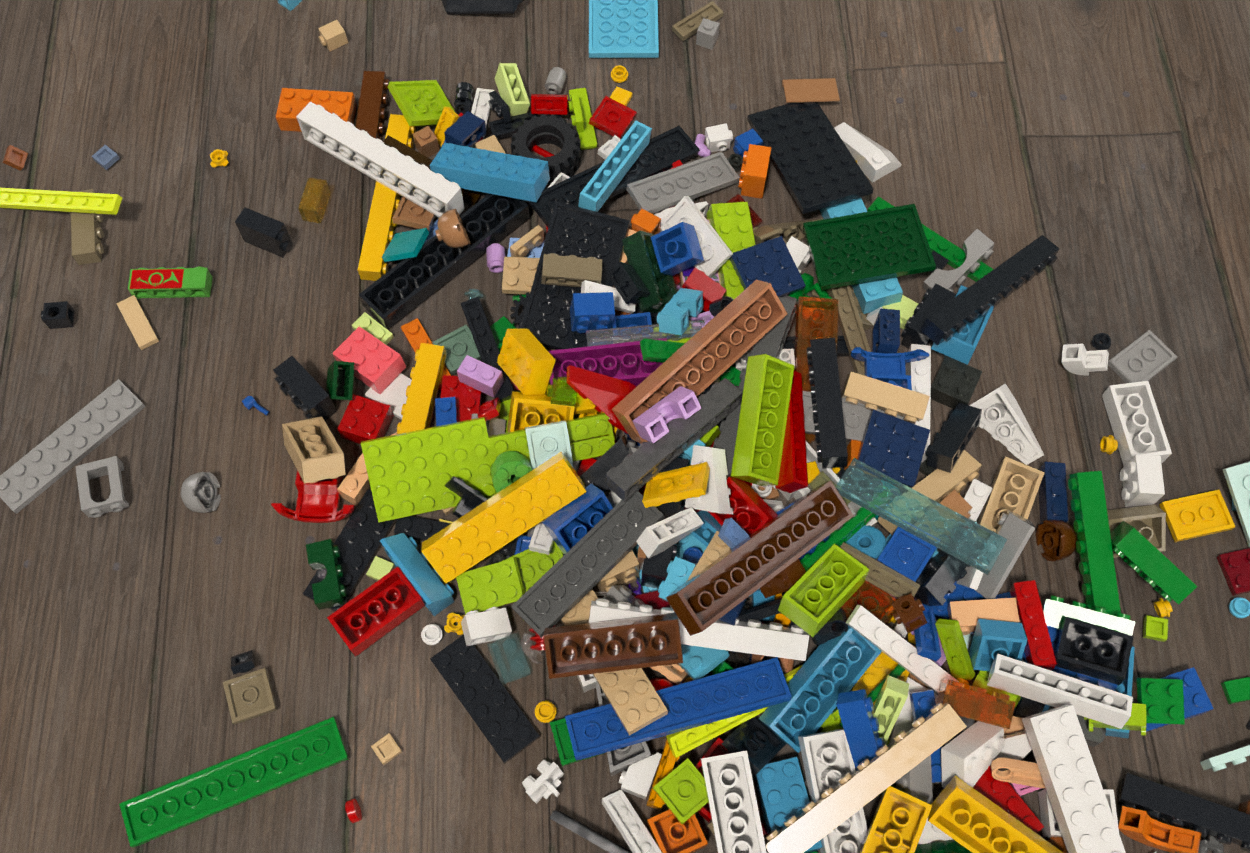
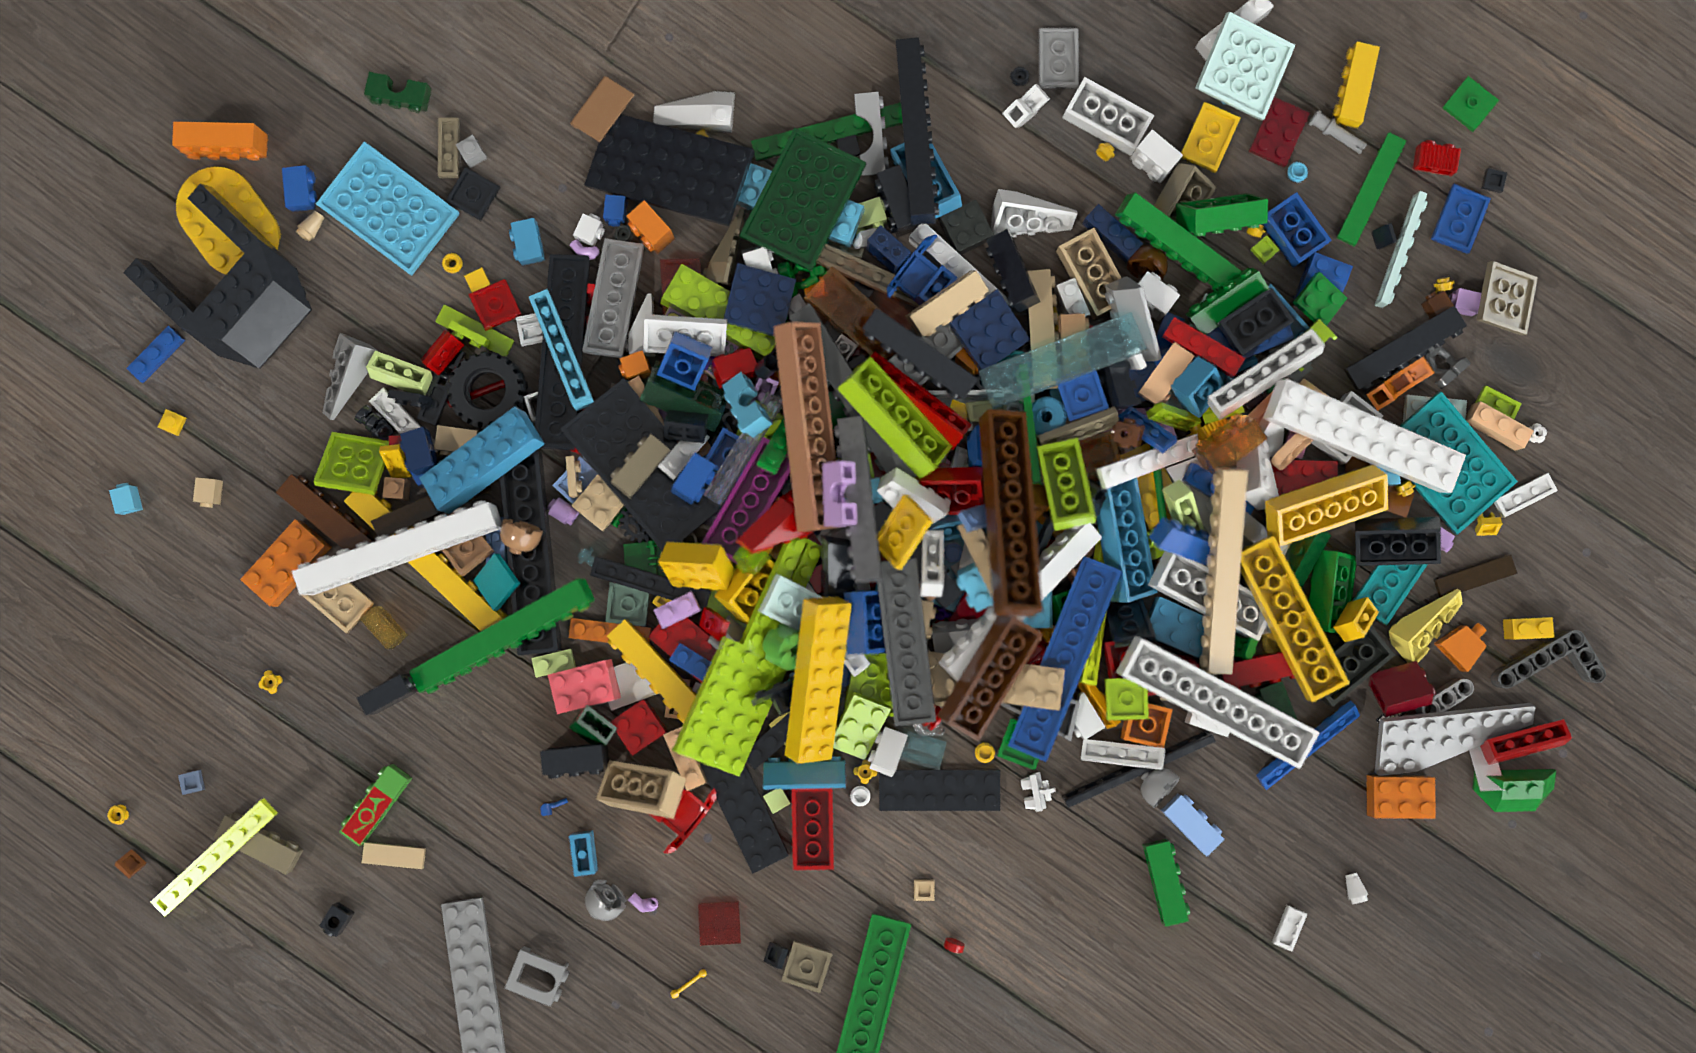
camera: 55 degrees left, 20 degrees up
(49, 128) = (114, 818): none -> yellow plate
(156, 605) = (675, 993): none -> yellow hinge
(218, 528) = (643, 905): none -> lavender arm
(230, 450) = (583, 853): none -> dark azure brick
(241, 598) = (719, 923): none -> clear red plate
(311, 163) = (342, 605): none -> tan plate
(330, 590) = (771, 851): dark green arch -> none
(367, 272) = (502, 635): none -> green brick
(485, 62) = (348, 372): none -> light grey wedge
(555, 80) = (416, 326): light grey brick -> none
(675, 107) = (527, 241): none -> dark azure brick
(679, 56) = (472, 194): none -> black tile
(1037, 561) = (1158, 295): none -> white brick
(1194, 638) = (1295, 230): none -> blue brick

